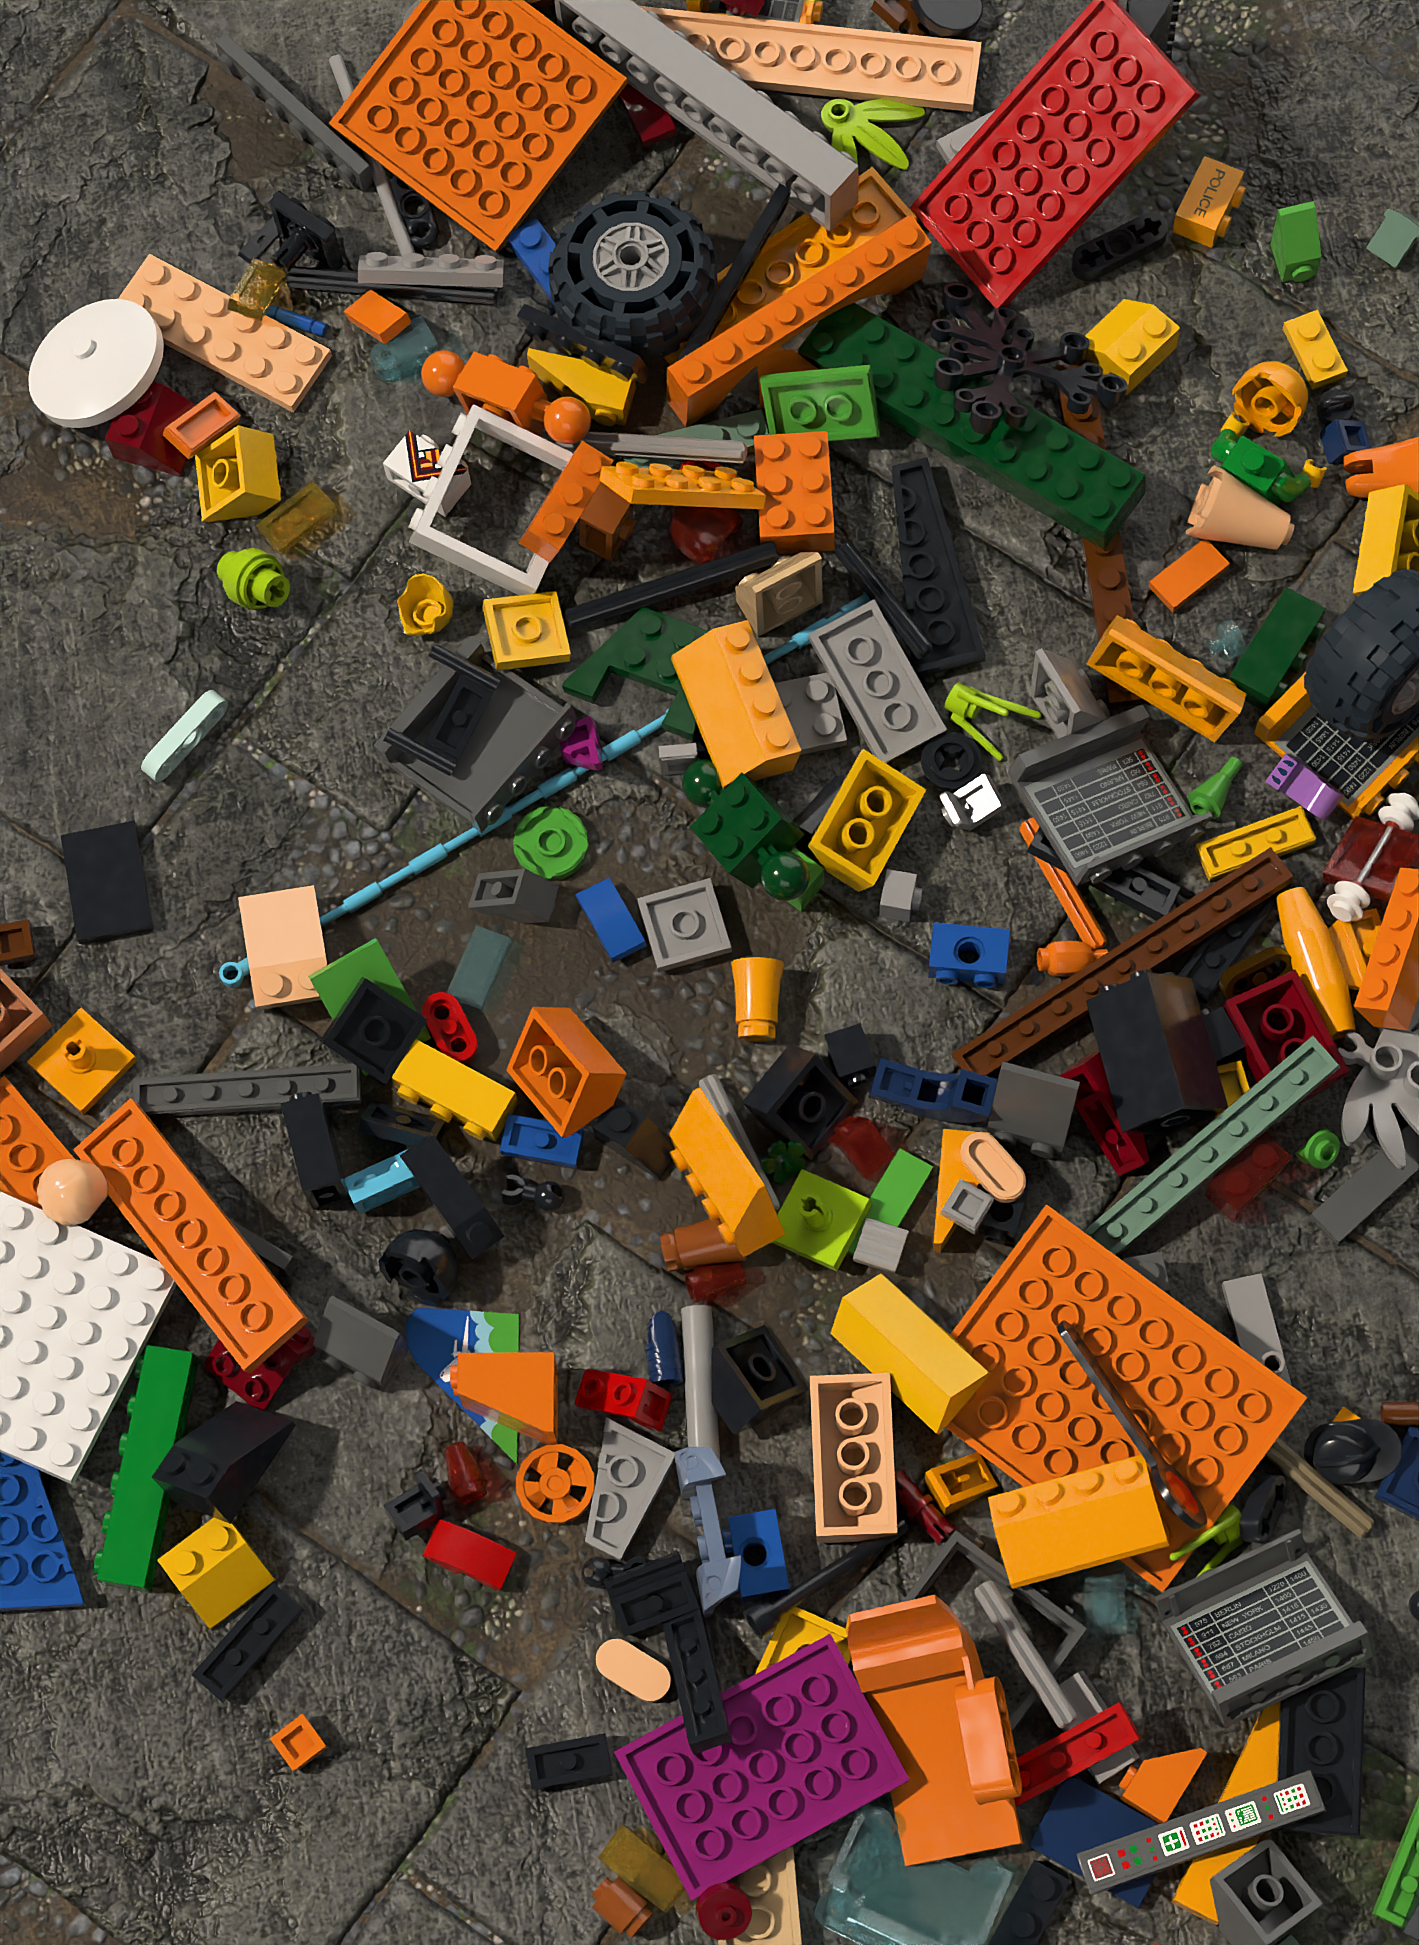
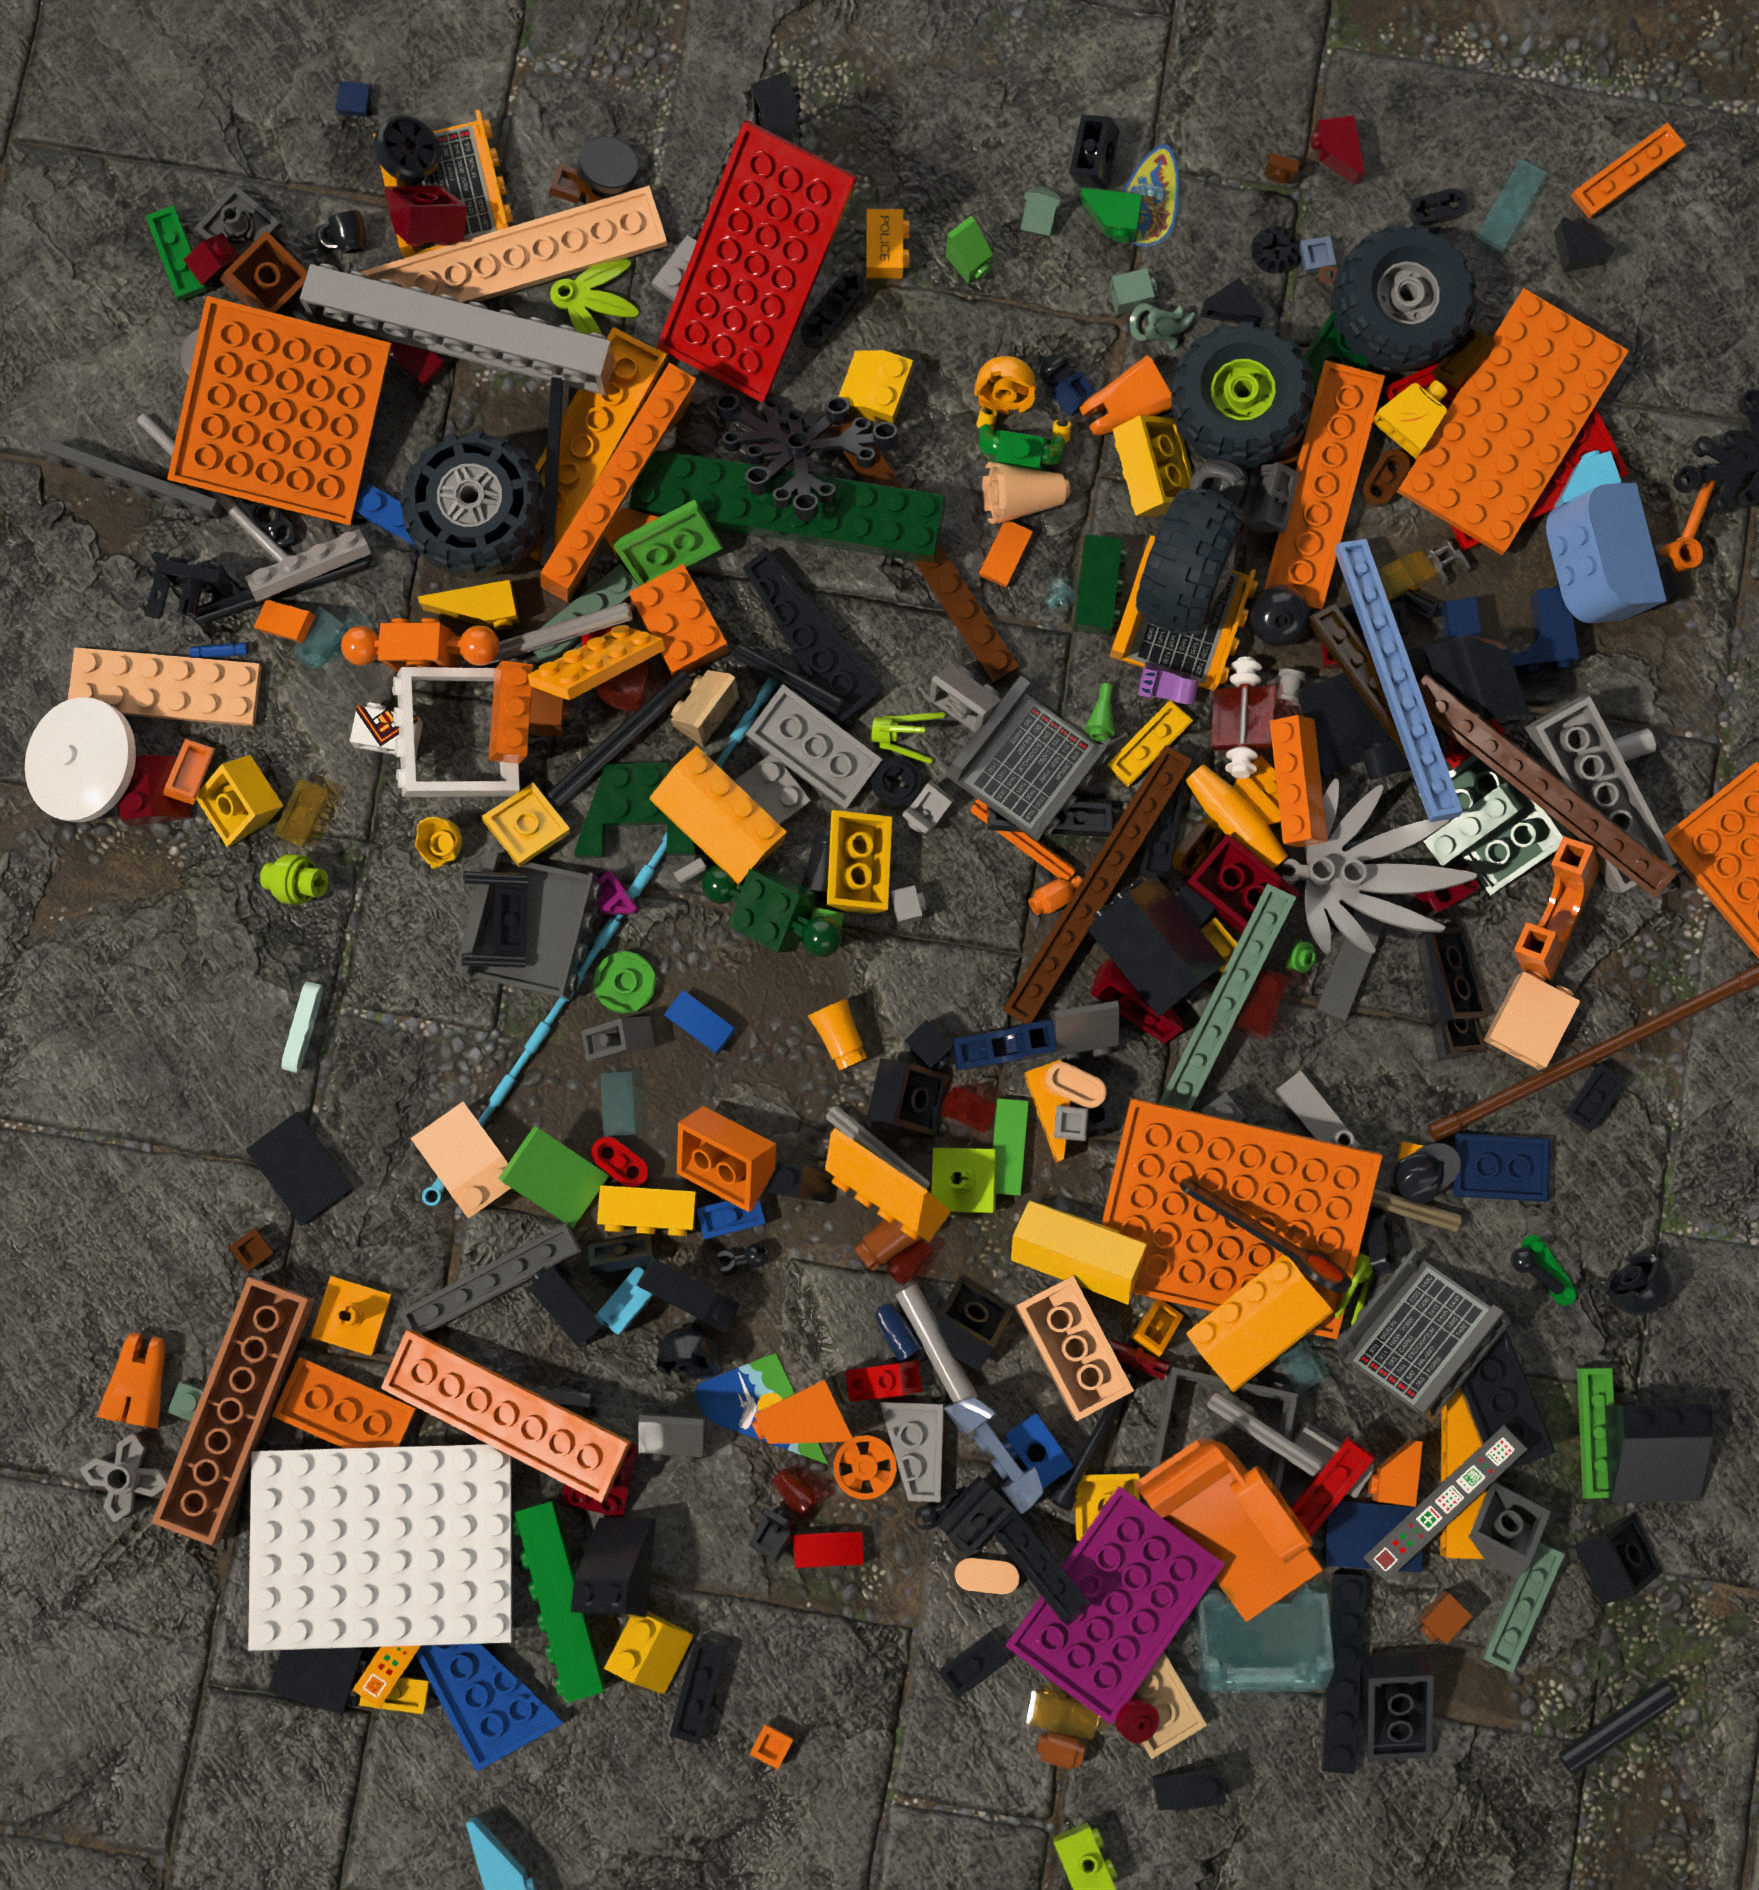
camera: 35 degrees left, 10 degrees up
(71, 1191) = (398, 1423): light nougat hair -> none
(257, 289) = (177, 641): clear yellow plate -> none
(373, 1030) = (567, 1195): black plate -> none
(596, 353) = (421, 574): black plate -> none
(684, 925) = (757, 1001): light grey plate -> none
(783, 1160) = (917, 1147): dark green plant -> none
(880, 1245) = (1018, 1179): light grey piece -> none
(953, 939) = (993, 913): blue brick -> none
(1167, 678) = (1030, 646): light orange slope -> none
(1315, 349) = (1018, 329): yellow plate -> none

